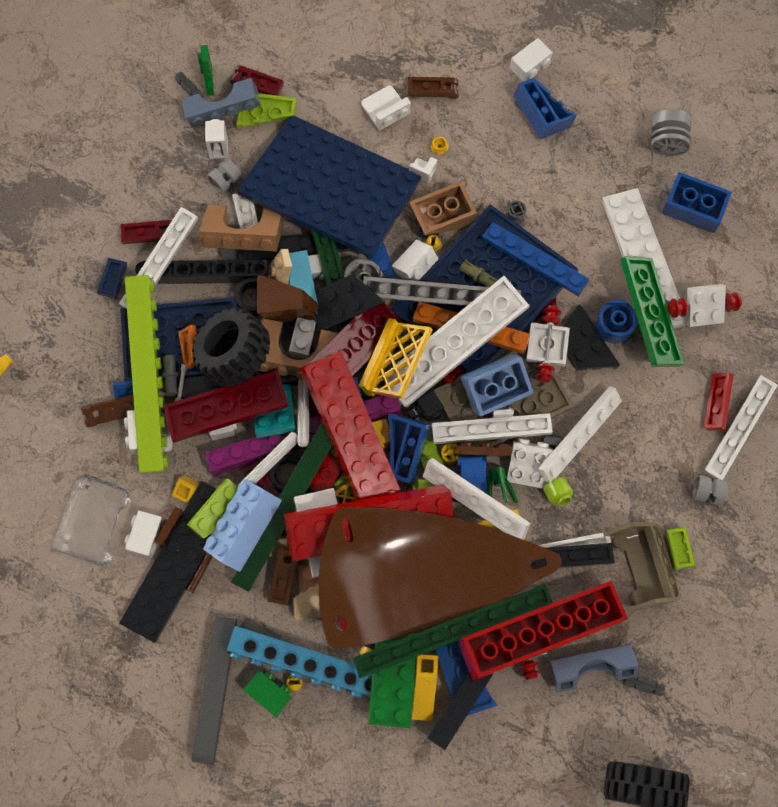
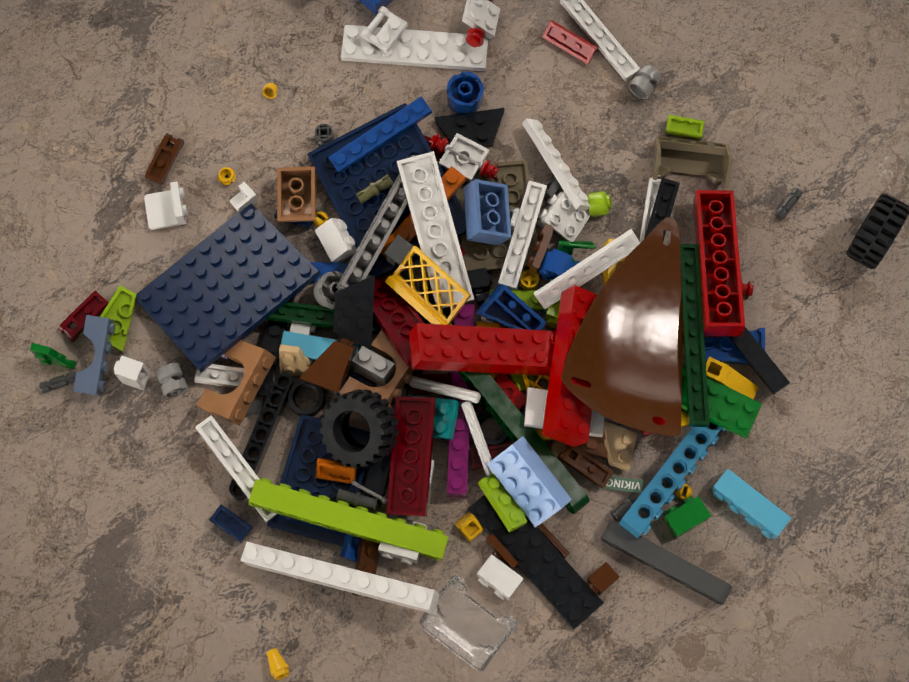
camera: 65 degrees left, 0 degrees up
(87, 389) = (340, 577): none -> white brick
(143, 231) = (197, 474): dark red plate -> none
(176, 632) = (602, 579): none -> reddish brown brick
(279, 621) = (625, 484): none -> sand green sticker
(304, 755) = (750, 504): none -> medium azure brick
(422, 316) = (397, 250): none -> dark grey brick
(531, 60) = (177, 62): white brick -> none
(540, 149) = (267, 90): none -> yellow hinge
(541, 109) = (233, 72): blue wedge -> none
(616, 661) = (763, 214): sand blue arch -> none
(644, 228) = (388, 33): none -> white plate
(652, 312) = (470, 59): green plate -> none

